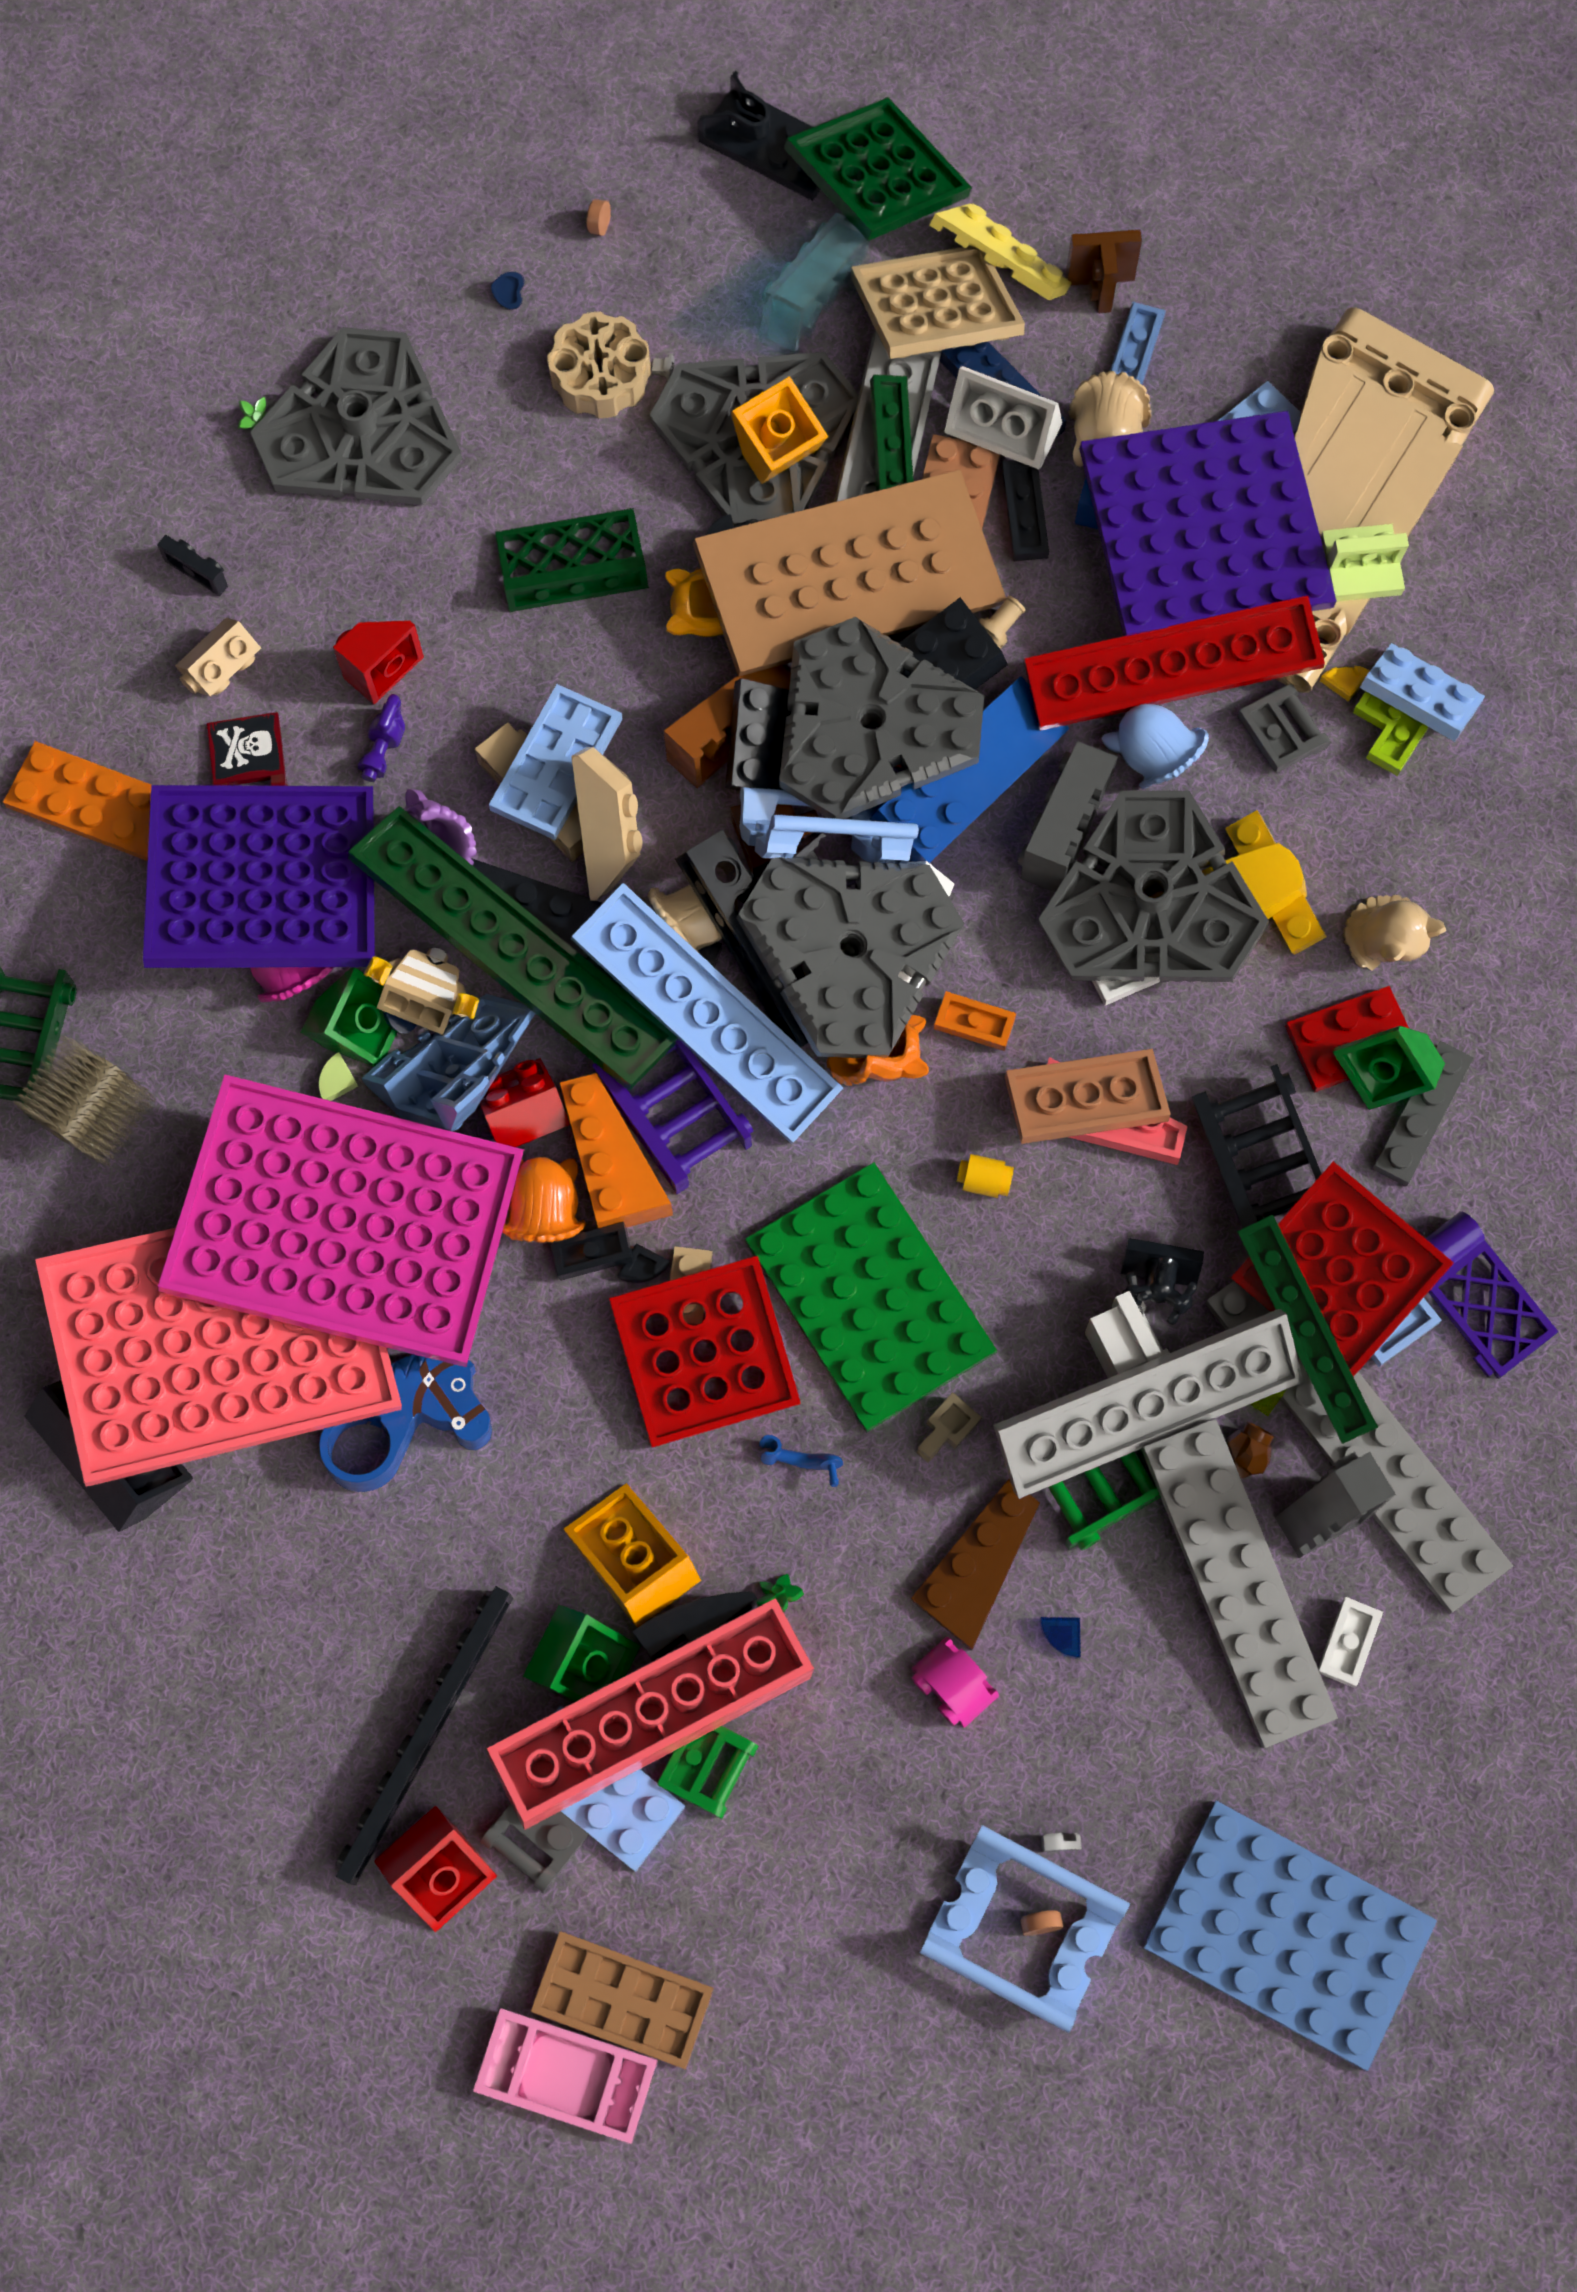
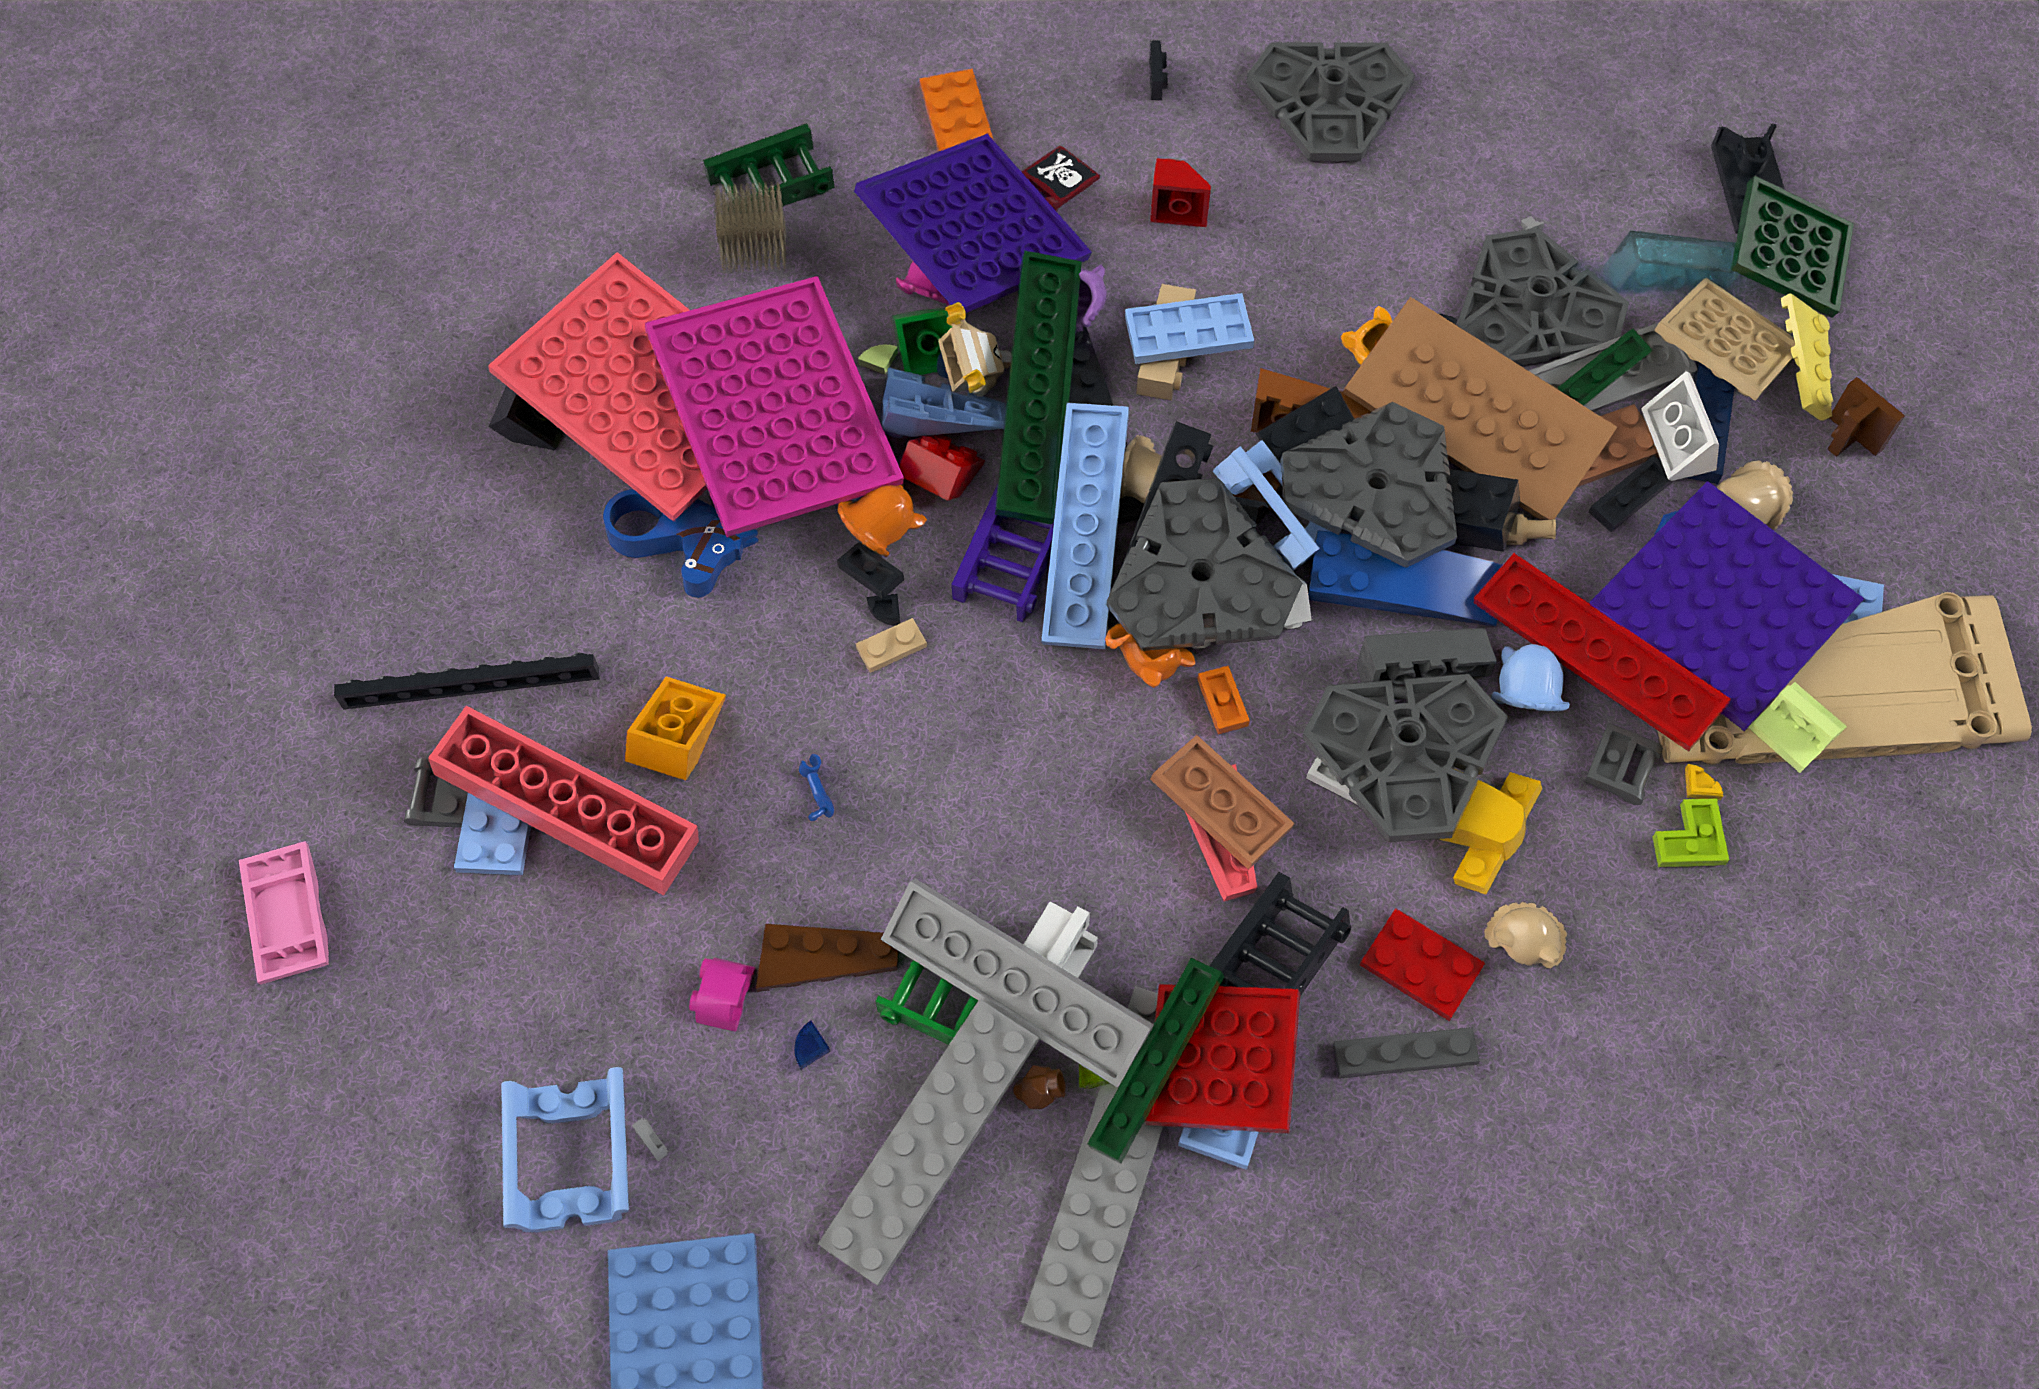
camera: 55 degrees right, 10 degrees down
(218, 658) = (1104, 118): tan brick -> none
(253, 413) = (1284, 35): bright green plant -> none
(385, 731) = (1138, 234): dark purple piece -> none
(435, 1869) = (379, 744): red slope -> none
(508, 289) = (1500, 109): dark blue piece -> none
(575, 580) = (1337, 271): dark green fence -> none
(579, 1656) = (582, 736): green slope -> none
(583, 386) = (1495, 188): tan connector -> none
(598, 217) = (1598, 123): nougat tile -> none
(606, 820) = (1173, 378): tan wedge -> none
(612, 1162) = (941, 538): orange wedge -> none
(622, 2000) = (358, 917): medium nougat plate -> none
(643, 1349) = (826, 682): red piece -> none
(691, 1621) = (651, 787): black slope -> none
(693, 1763) = (550, 858): green plate -> none
(777, 430) = (1538, 301): light orange slope -> none
(782, 1591) = (712, 837): green plant -> none
(870, 1297) = (969, 763): green plate -> none
(951, 1424) = (909, 867): dark tan plate -> none
(985, 1176) = (1112, 777): yellow brick -> none
(1041, 1923) = (581, 1162): nougat tile -> none
(1138, 341) = (1827, 486): medium blue tile -> none
(1163, 1268) = (1132, 935): black piece -> none
(1336, 1504) = (1034, 1165): dark grey wedge -> none
(1350, 1642) = (943, 1257): white plate -> none
(1391, 1065) = (1419, 996): green slope -> none
(1422, 691) = (1738, 839): light blue plate -> none
(1462, 1242) = (1309, 1139): dark purple piece -> none

